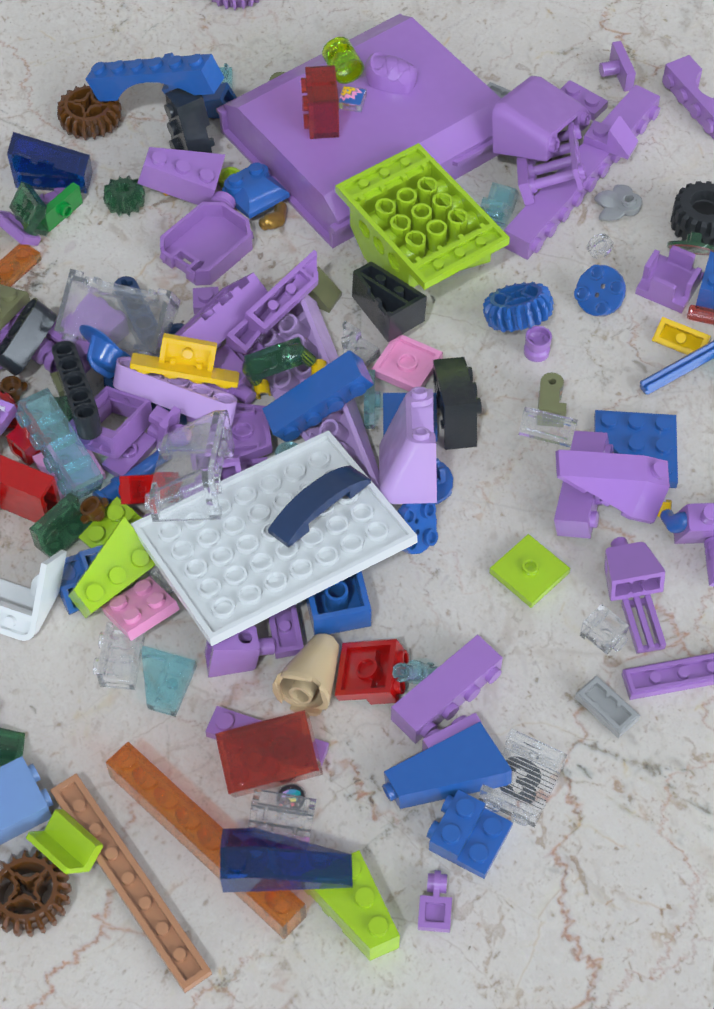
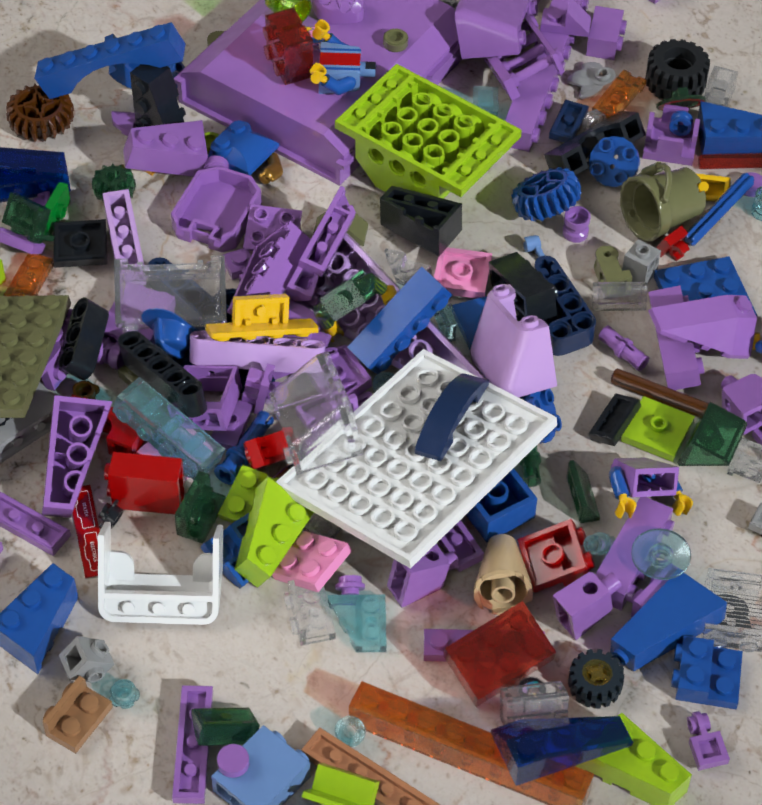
camera: 20 degrees left, 5 degrees down
(70, 244) = (80, 243): none -> black plate
(93, 509) = (225, 482): reddish brown plate -> none
(103, 785) = (342, 734): none -> clear light blue plate
(109, 242) = (122, 226): none -> lavender brick
(160, 137) = (123, 121): none -> medium lavender tile
(166, 642) = (349, 584): none -> medium lavender plate
(243, 263) = (265, 221): none -> medium lavender hinge
(361, 795) = (594, 667): none -> black wheel
(363, 131) = (339, 63): none -> torso
(374, 727) = (585, 602): none -> medium lavender torso
(388, 570) = (530, 467): none -> clear green pin
(427, 615) = (582, 493): none -> clear green slope
(431, 119) = (395, 40): none -> olive tile
(467, 689) = (664, 545): none -> clear light blue dish
(488, 353) = (533, 243): none -> medium blue hand
(488, 619) = (646, 479): none -> medium lavender torso
(489, 550) = (614, 419): none -> black plate
(491, 417) = (575, 320): none -> dark blue beam
(530, 480) = (623, 348): none -> medium lavender pin
(550, 538) = (658, 392): none -> reddish brown axle
(564, 274) = (576, 151): none -> black arch
(575, 240) = (568, 121): none -> dark blue plate
(575, 597) = (713, 438): none -> clear green slope
(583, 399) = (641, 261): none -> light grey brick
(624, 388) = (674, 244): none -> red tile
(627, 341) = (660, 201): none -> olive piece
(637, 225) = (620, 93): none -> clear orange plate
(650, 159) = (605, 33): none -> medium lavender brick
(683, 268) = (681, 116): none -> blue bush

